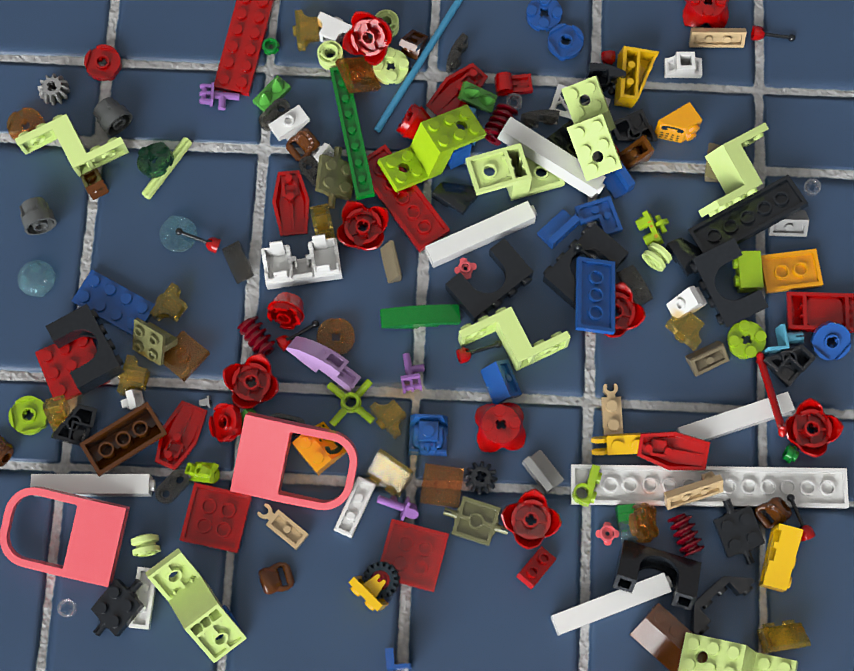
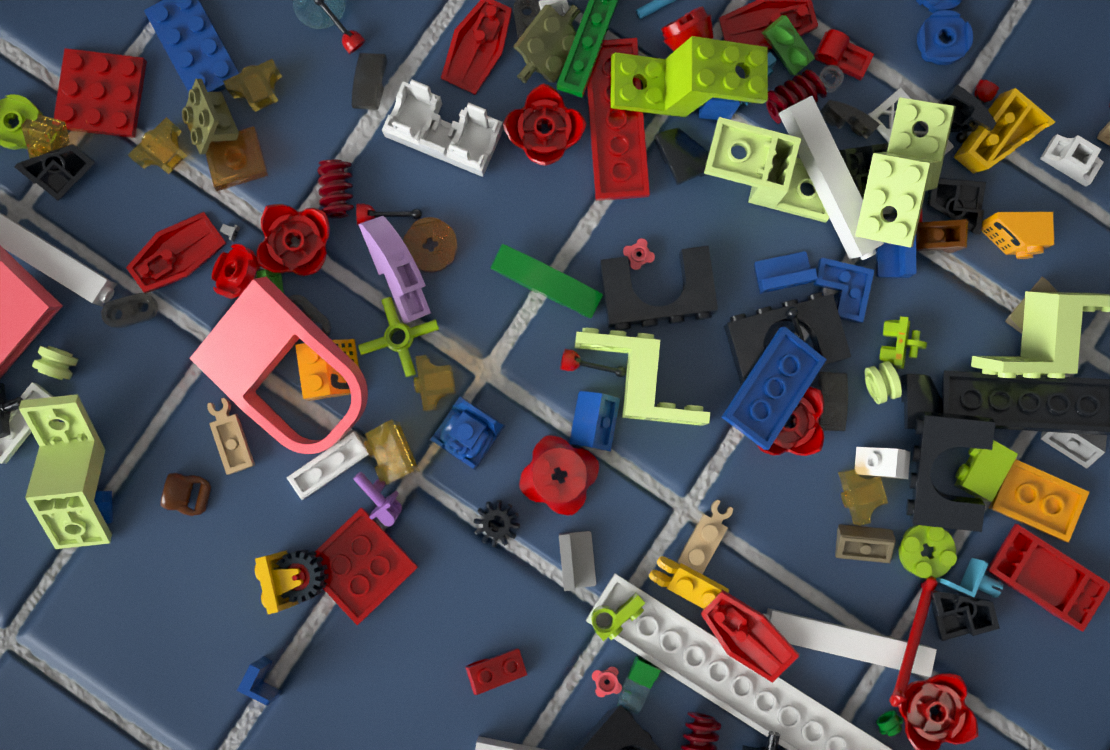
camera: 30 degrees right, 10 degrees up
(105, 363) = (133, 112): black arch -> none
(123, 438) = (102, 219): reddish brown slope -> none
(133, 400) = (145, 179): white tile -> none
(203, 472) = (173, 316): lime hips -> none
(215, 518) = (156, 379): red plate -> none
(286, 310) = (389, 176): red cone -> none
(322, 220) = (498, 91): clear yellow brick -> none
(391, 262) = (553, 192): dark tan slope -> none
(410, 380) = (488, 350): medium lavender arm -> none
(441, 485) = (446, 503): clear orange plate -> none
(476, 521) = (459, 571): olive plate -> none
(480, 234) = (685, 222): white brick -> none
(531, 504) = (512, 631): red brick -> none
(643, 522) = (656, 700): clear orange plate -> none
(707, 486) = (764, 705): tan hinge -> none
(830, 351) = (1034, 604): blue plate -> none

